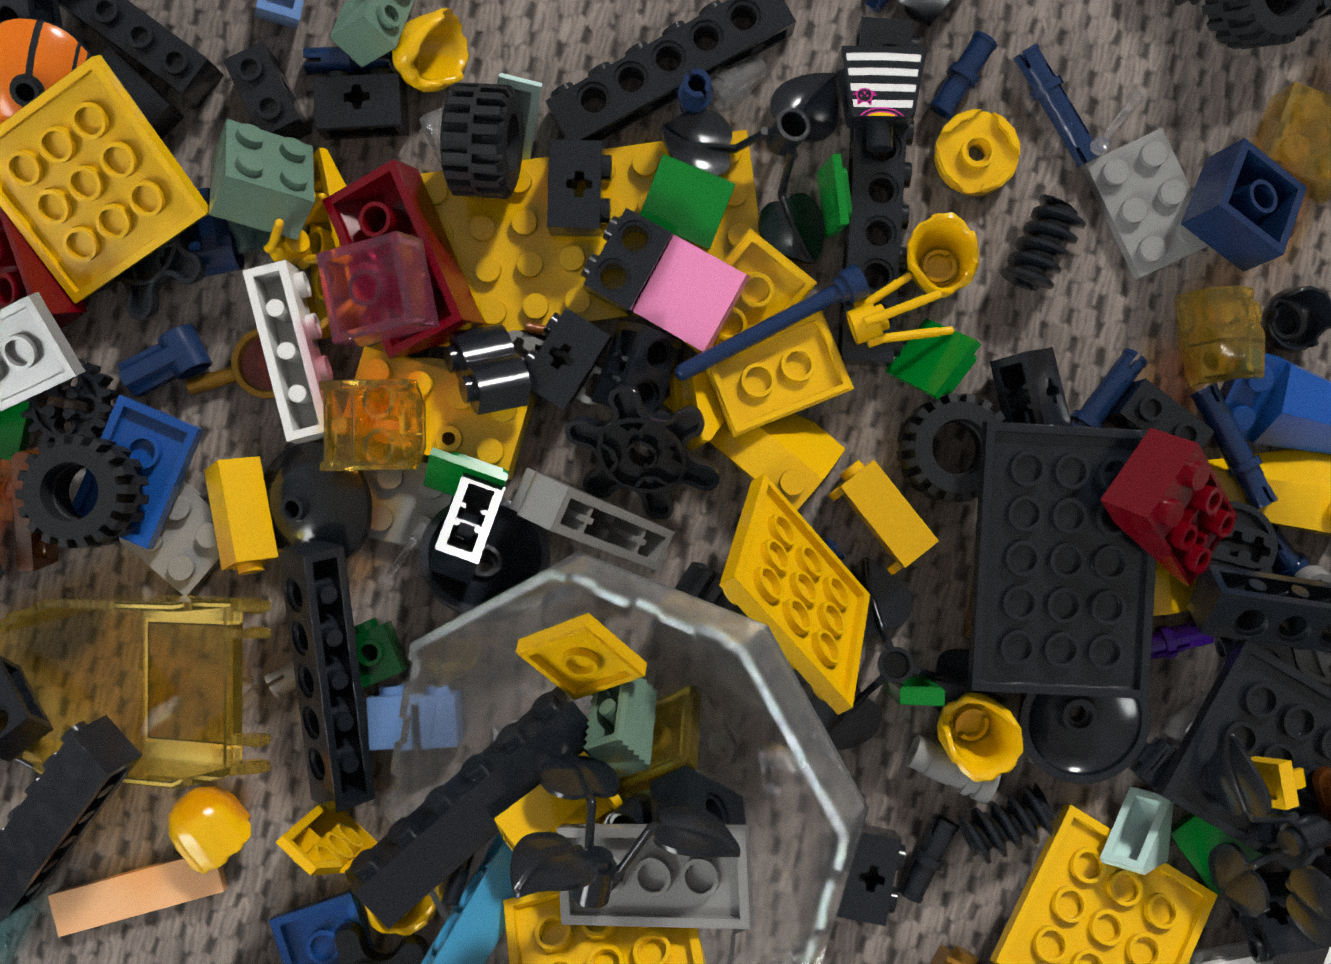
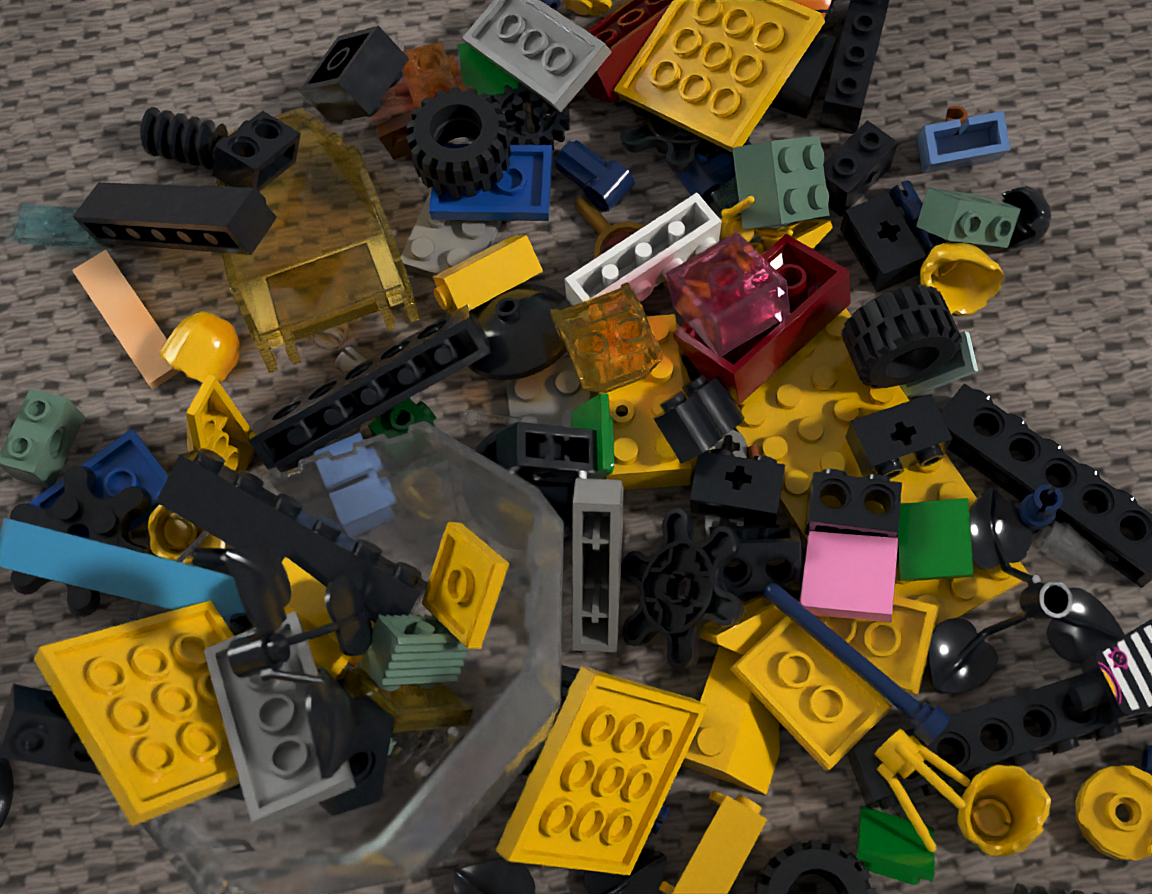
camera: 75 degrees right, 20 degrees down
(834, 196) = (1009, 680): green piece -> none

